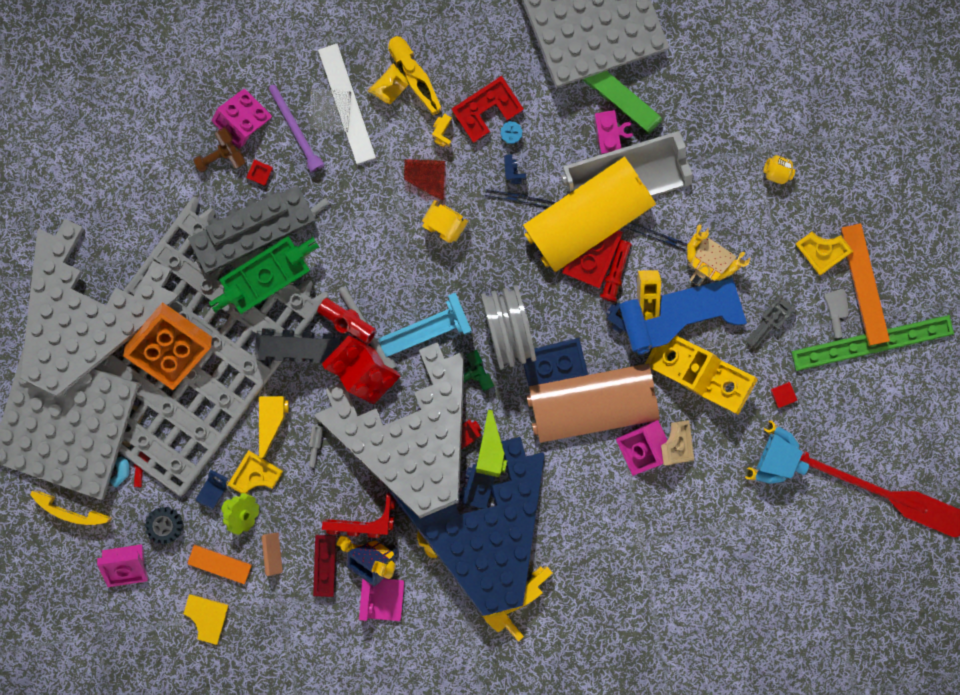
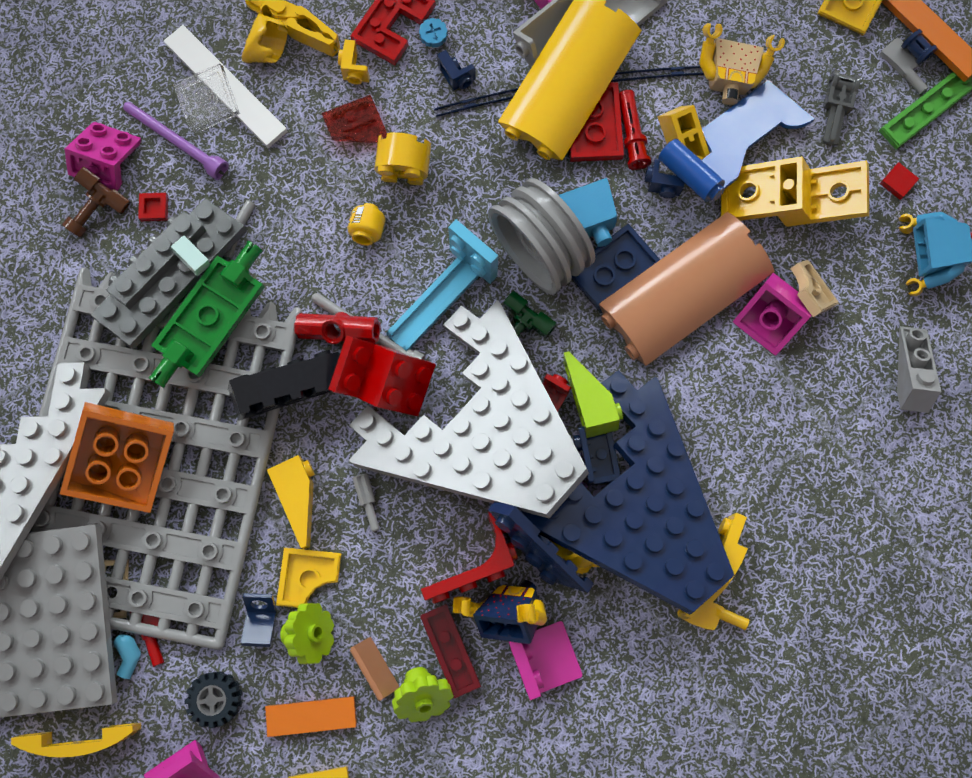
camera: 30 degrees left, 10 degrees down
(270, 229) = (190, 256): none -> light aqua piece
(293, 585) = (421, 696): none -> lime plant
(399, 255) = (366, 224): none -> yellow head
(407, 533) = (537, 549): none -> dark blue wing
(556, 318) = (594, 209): none -> dark azure torso
(720, 529) = (917, 374): none -> light grey slope
(850, 305) = (919, 46): none -> dark blue bush

